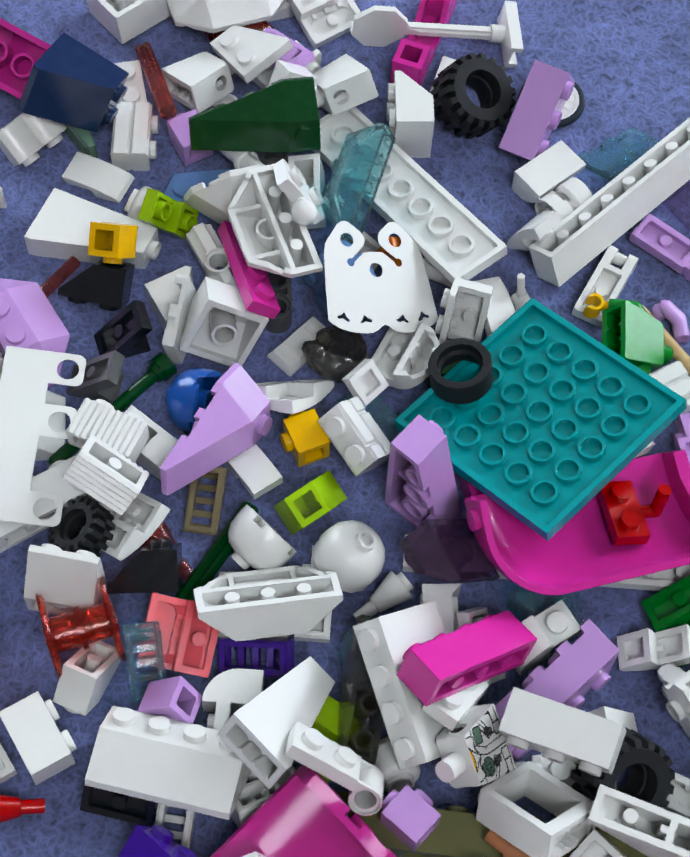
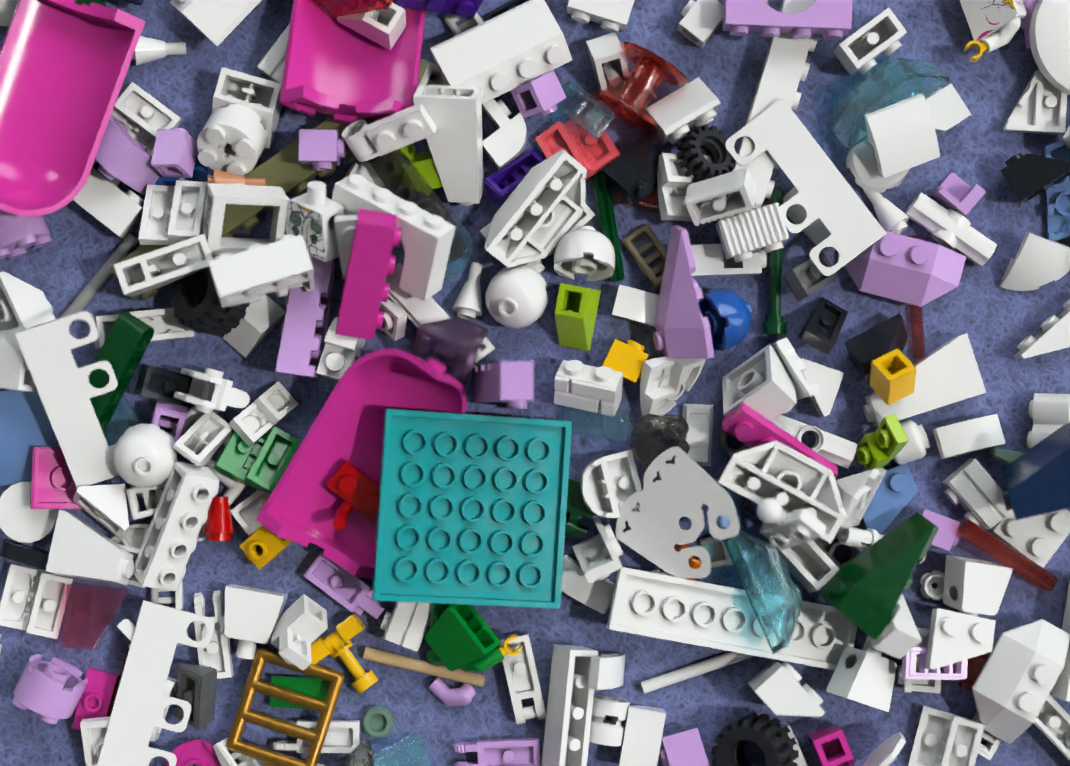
camera: 145 degrees right, 25 degrees up
(365, 381) = (617, 433): white plate -> none
(464, 391) = (576, 505): black tyre -> none
(477, 198) = (693, 670): none -> white bar
(521, 296) = (573, 611): white hand -> none

